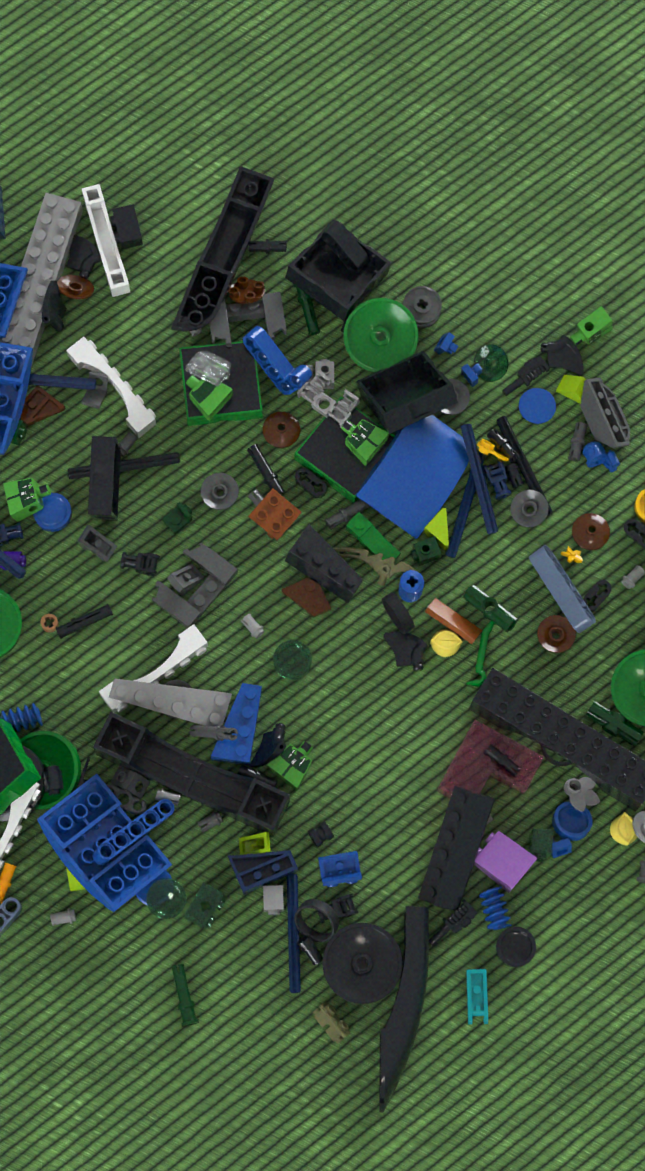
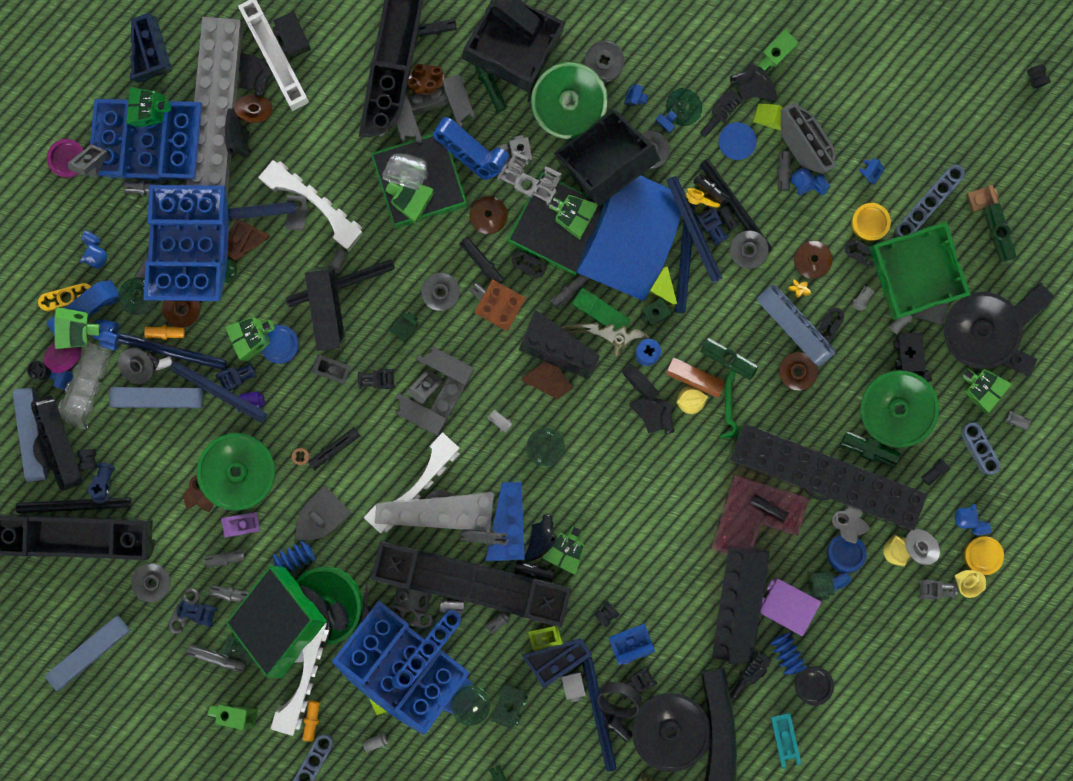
camera: 10 degrees left, 10 degrees up
(56, 684) = (321, 516): none -> dark grey shield

